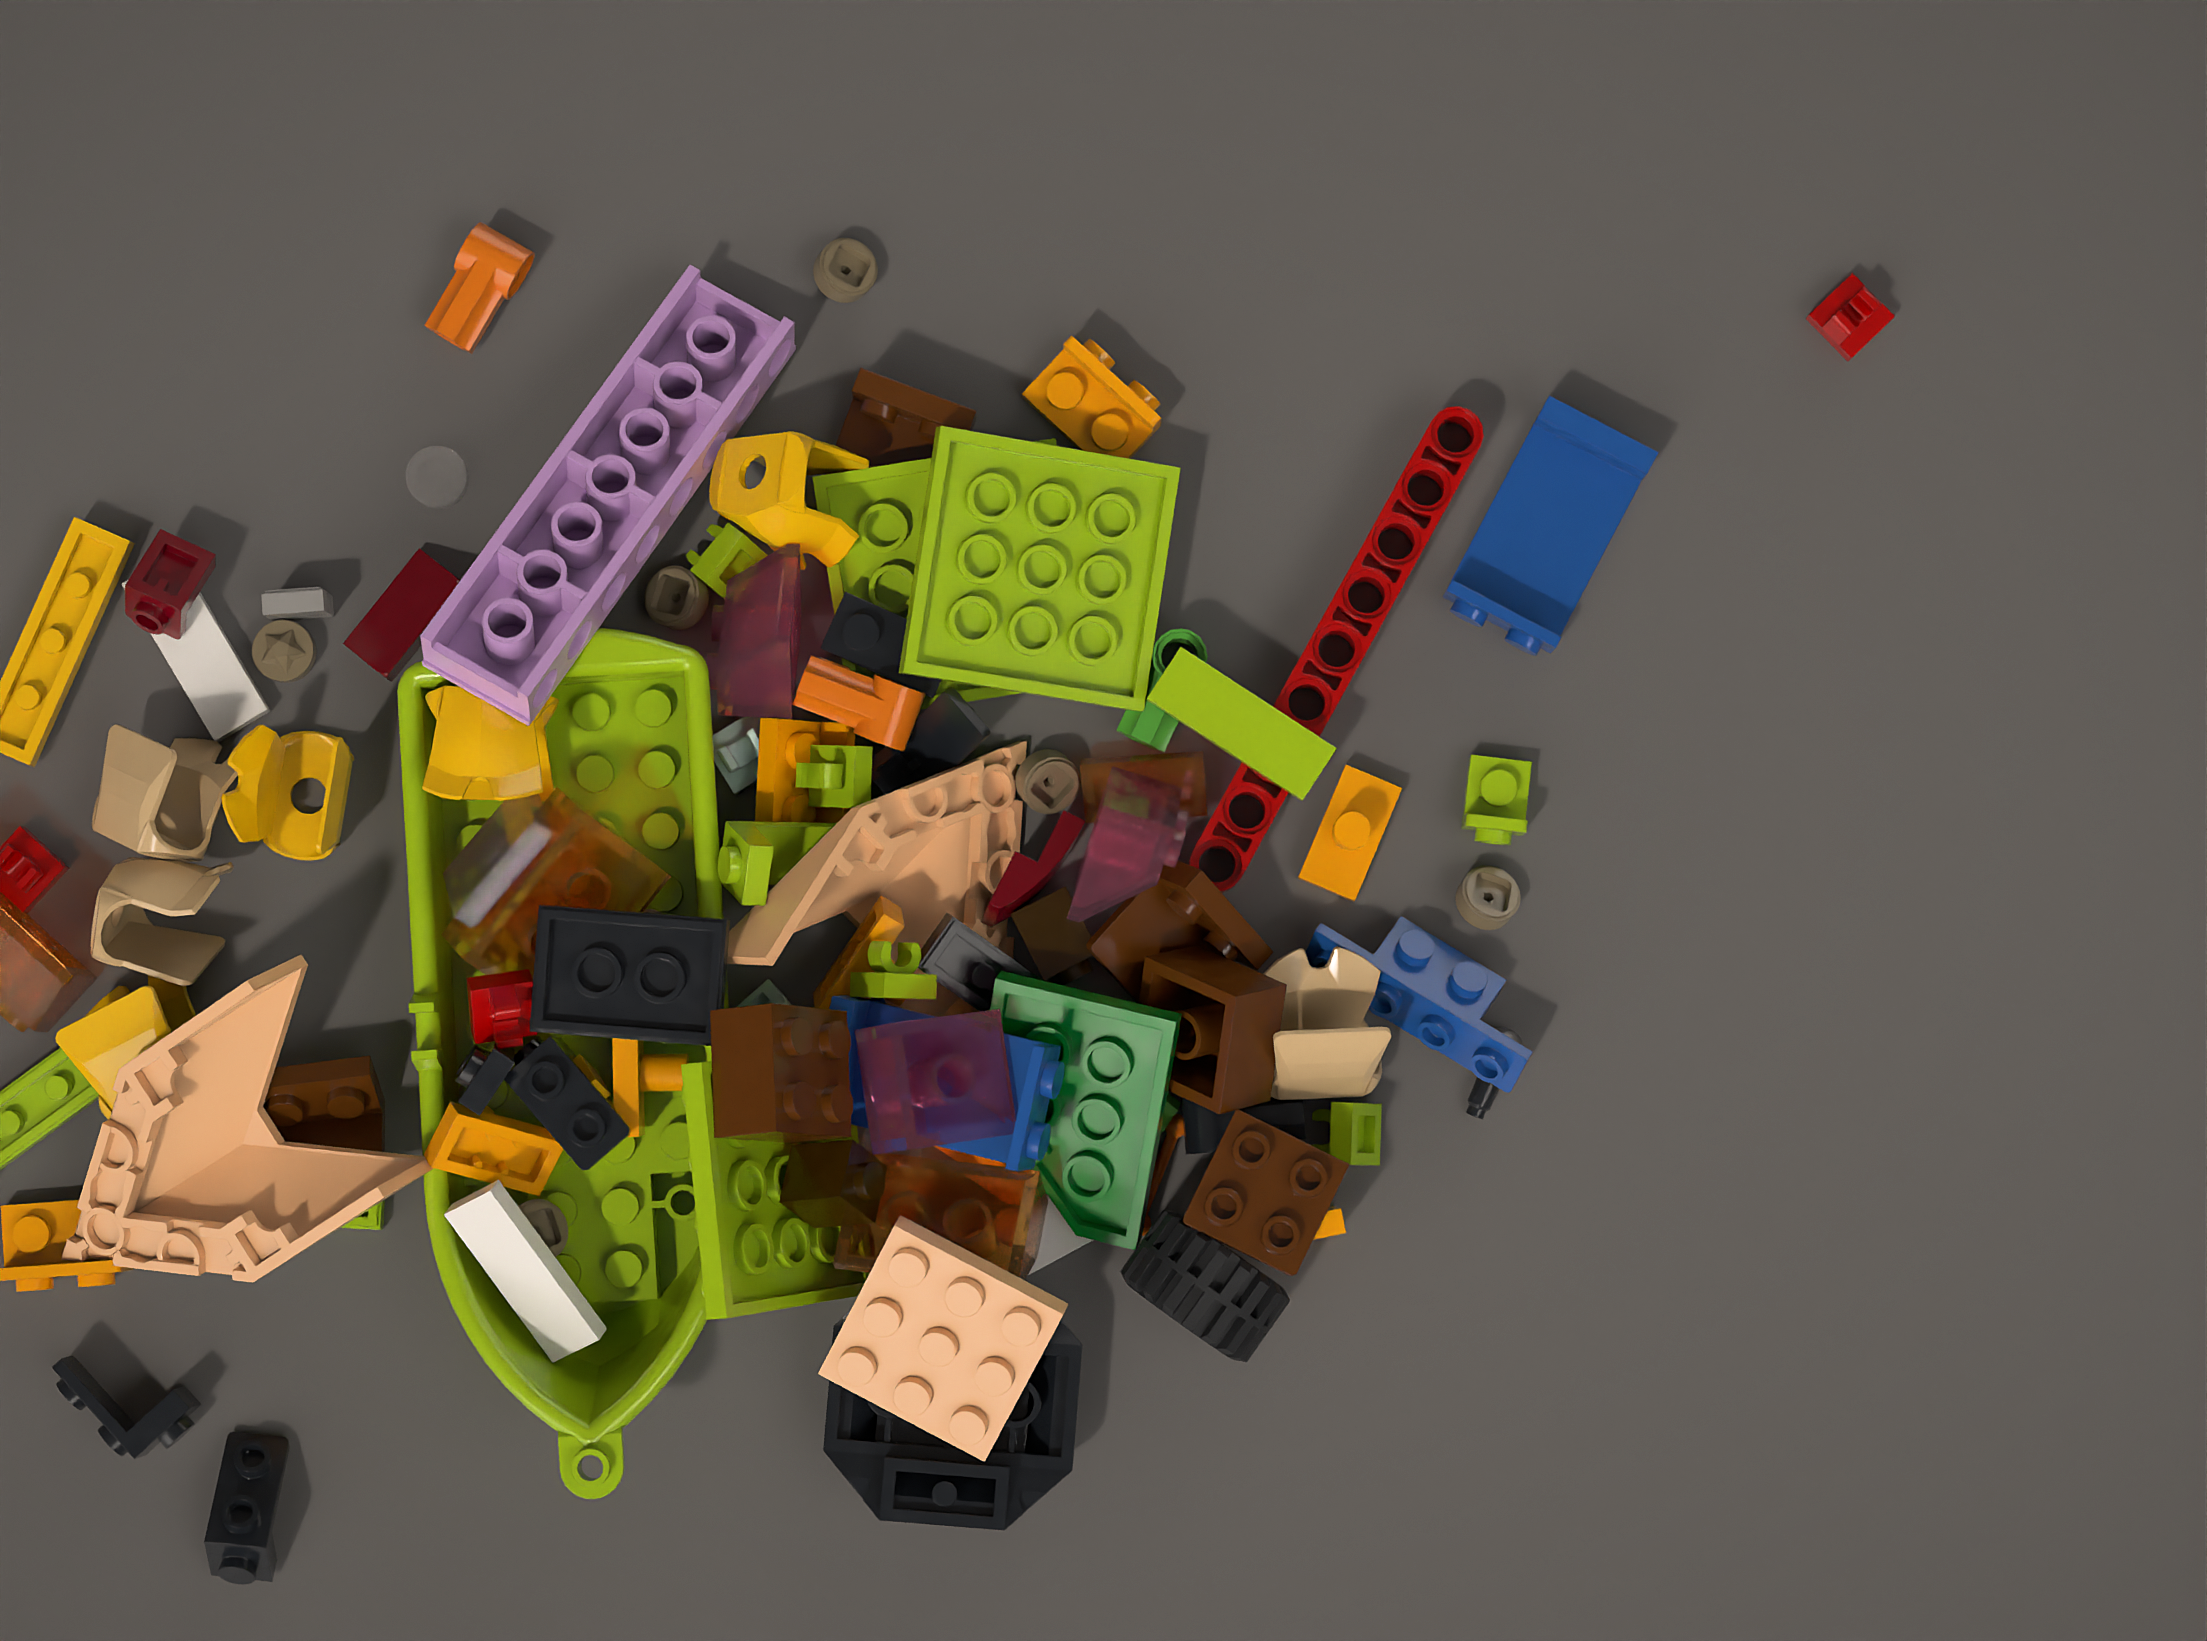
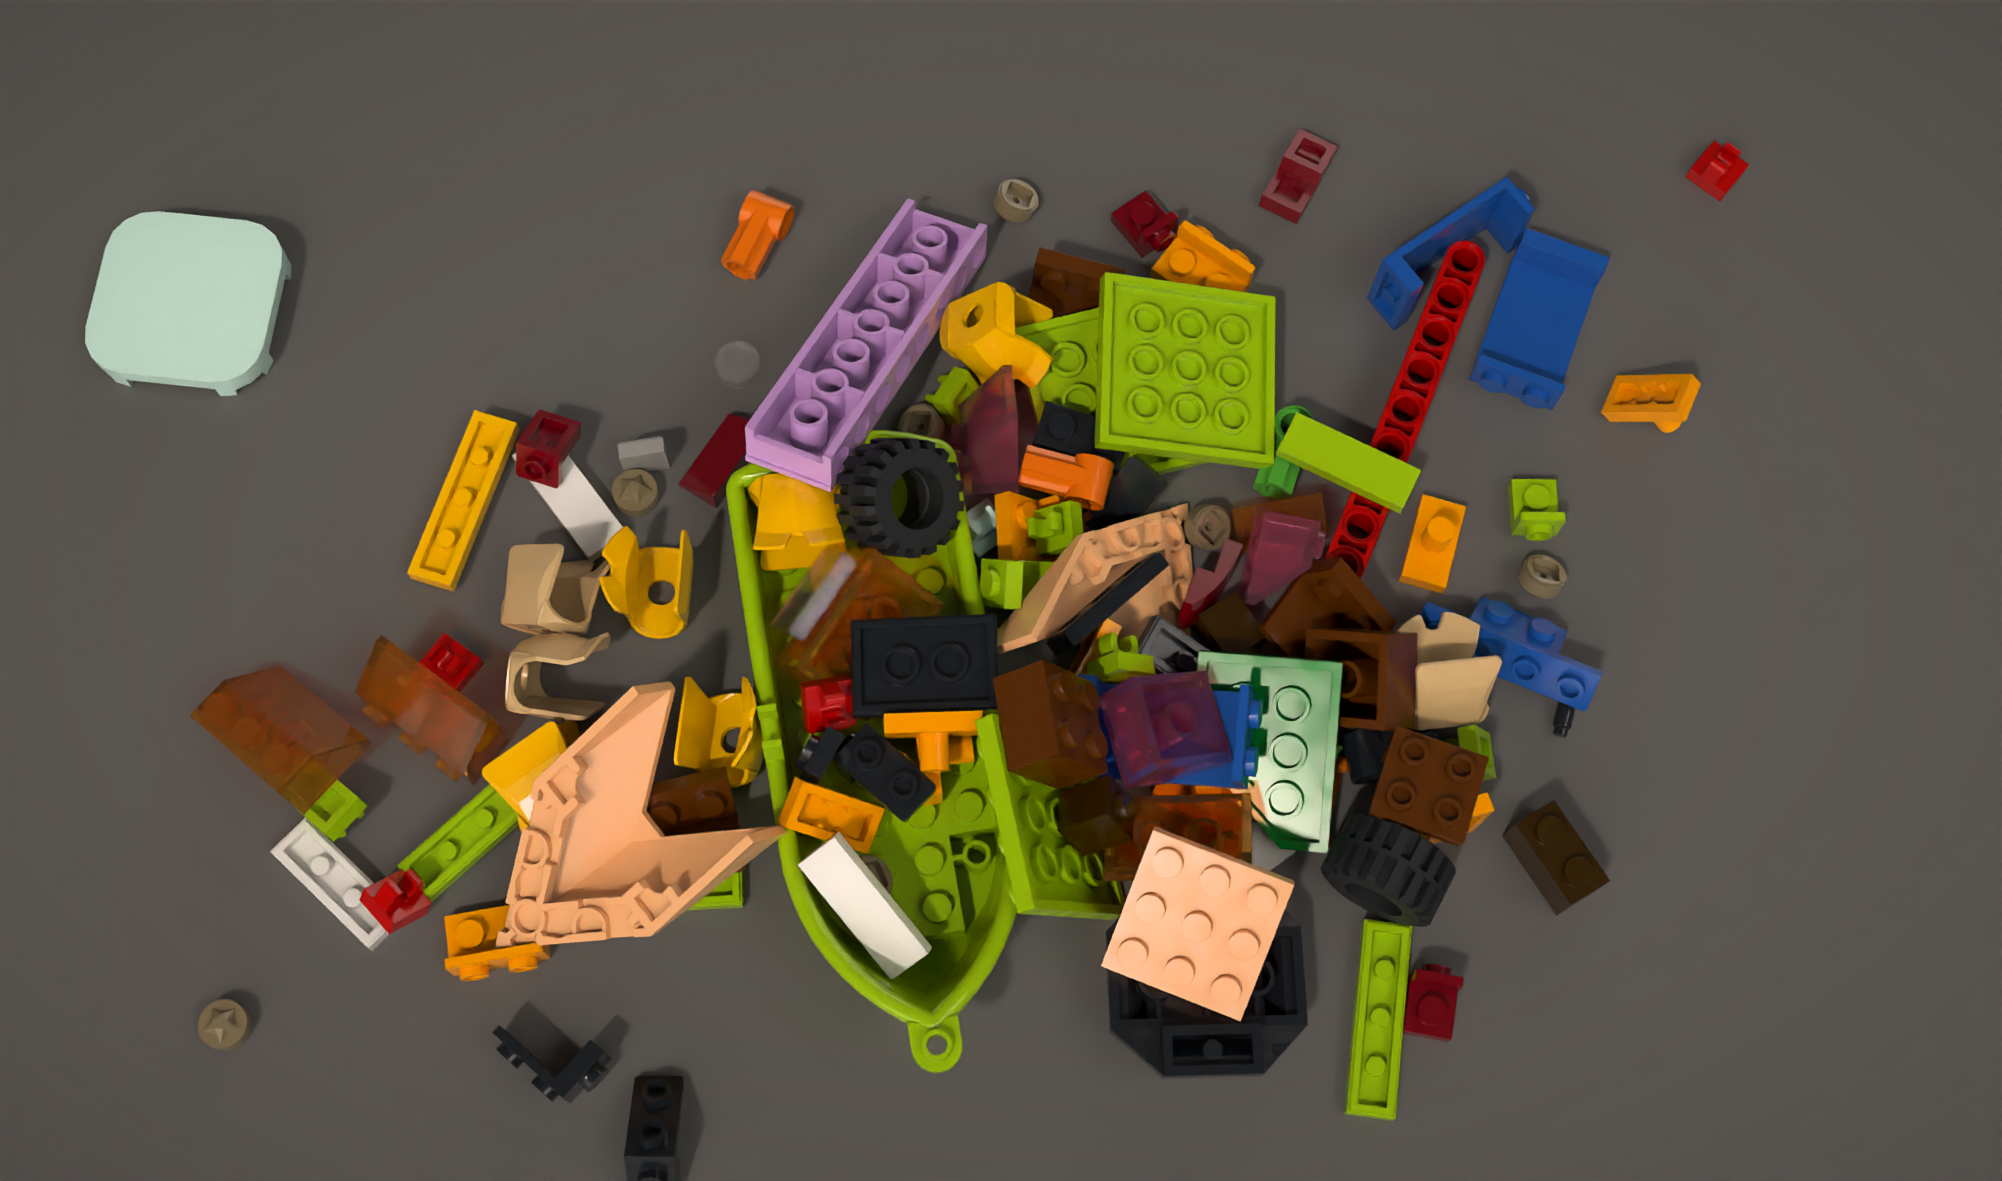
camera: 10 degrees left, 15 degrees down
(345, 1001) = (705, 724): none -> yellow piece
(631, 1065) = (933, 733): none -> light orange tile
(655, 761) = (930, 504): none -> black tyre
(890, 888) = (1106, 603): none -> black tile
(1024, 323) = (1146, 224): none -> dark red bracket
(1173, 1463) = (1378, 1020): none -> lime tile
(1243, 1451) = (1431, 1002): none -> dark red bracket
(1250, 268) = (1298, 176): none -> dark red slope
(1342, 456) = (1500, 210): none -> blue panel
(1433, 1285) = (1555, 857): none -> dark brown brick
(1677, 665) = (1652, 398): none -> light orange tile

